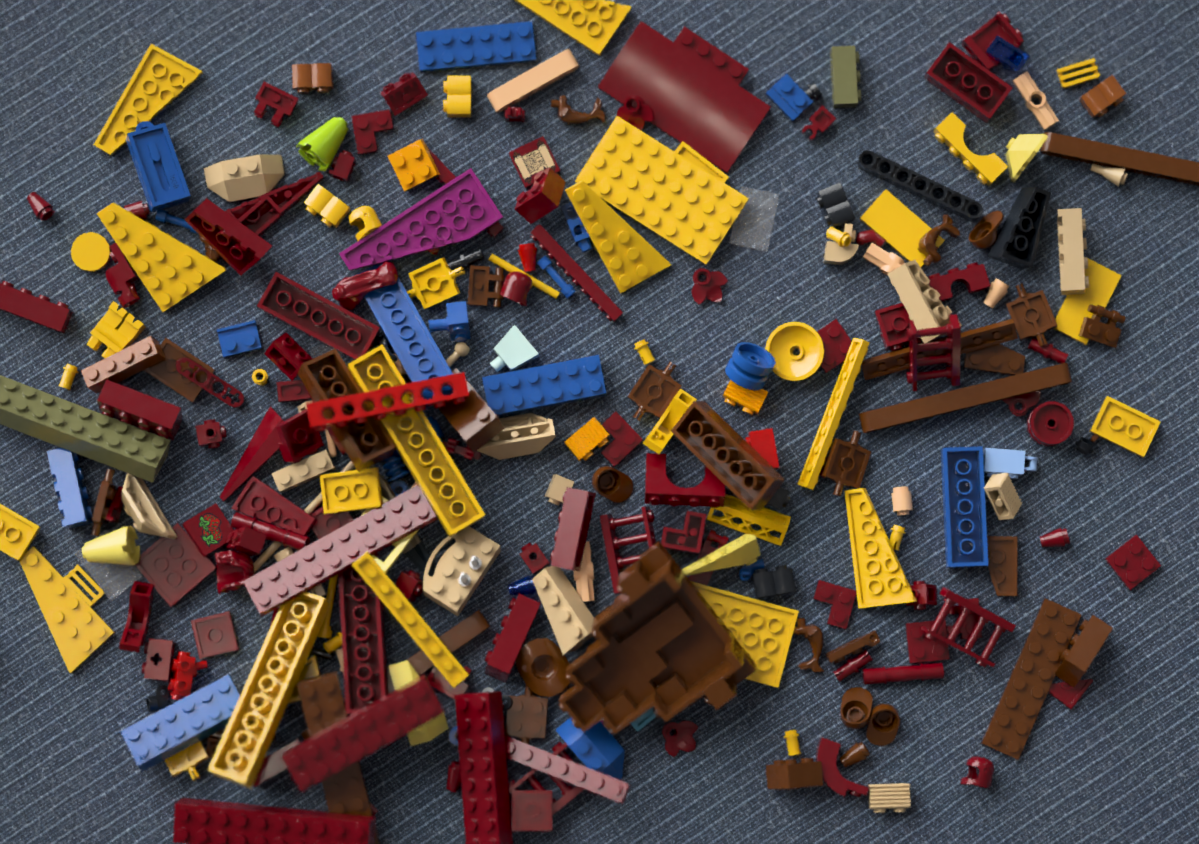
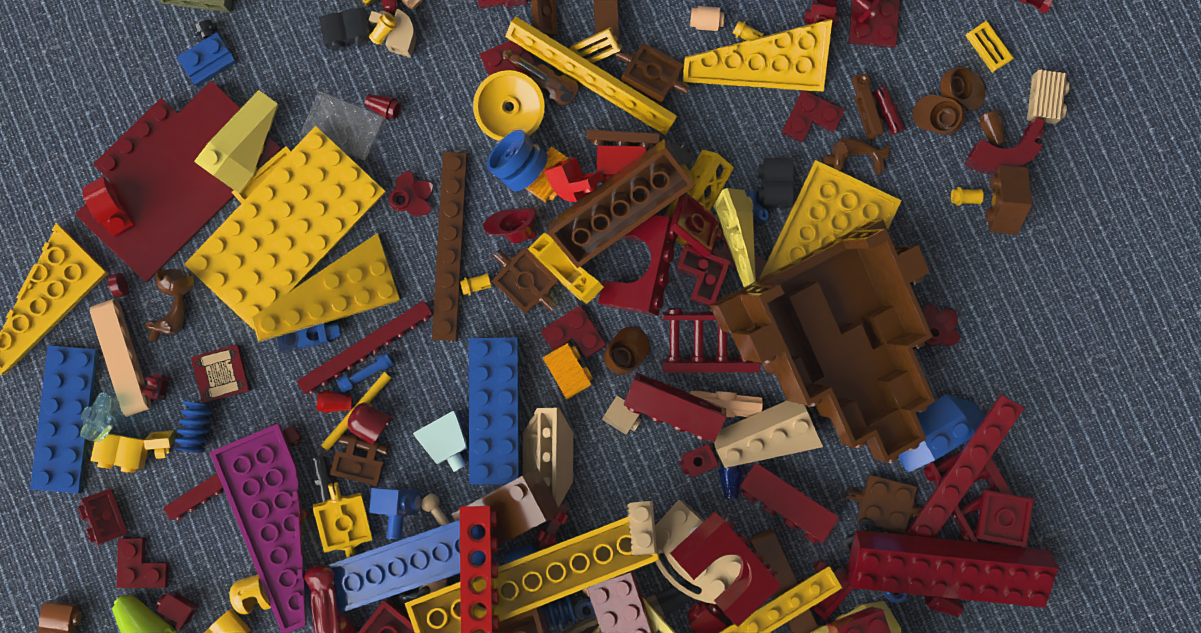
camera: 75 degrees left, 0 degrees up
(413, 164) = (192, 521): light orange plate -> none
(471, 126) = (160, 442): none -> yellow tile
(472, 516) = (642, 528): none -> tan brick
(475, 575) = (717, 539): none -> dark red arch
(482, 75) = (98, 417): none -> clear light blue plate
(488, 150) = (193, 427): none -> blue piece
(542, 197) = (263, 371): dark red brick -> none
(543, 667) = (833, 472): reddish brown hat -> none
(590, 66) = (118, 285): none -> dark red tile
(600, 112) = (174, 281): none -> reddish brown hair
(635, 115) = (189, 240): dark red plate -> none
(650, 46) = (105, 206): none -> red brick
(672, 325) = (449, 246): none -> reddish brown plate
(698, 372) = (514, 224): none -> dark red piece
(720, 140) = (238, 145): none -> light yellow wedge
(724, 519) = (695, 224): none -> dark red tile
(740, 411) = (569, 182): none -> red brick
(777, 249) = (384, 106): none -> dark red cone
(785, 448) = (599, 137): none -> reddish brown plate
(818, 390) = (560, 88): none -> reddish brown piece
(820, 120) = (242, 29): dark red plate -> none
(865, 423) = (605, 33): none -> yellow tile
(903, 673) = (907, 55): dark red piece -> none
(936, 730) = (982, 51): none -> yellow tile

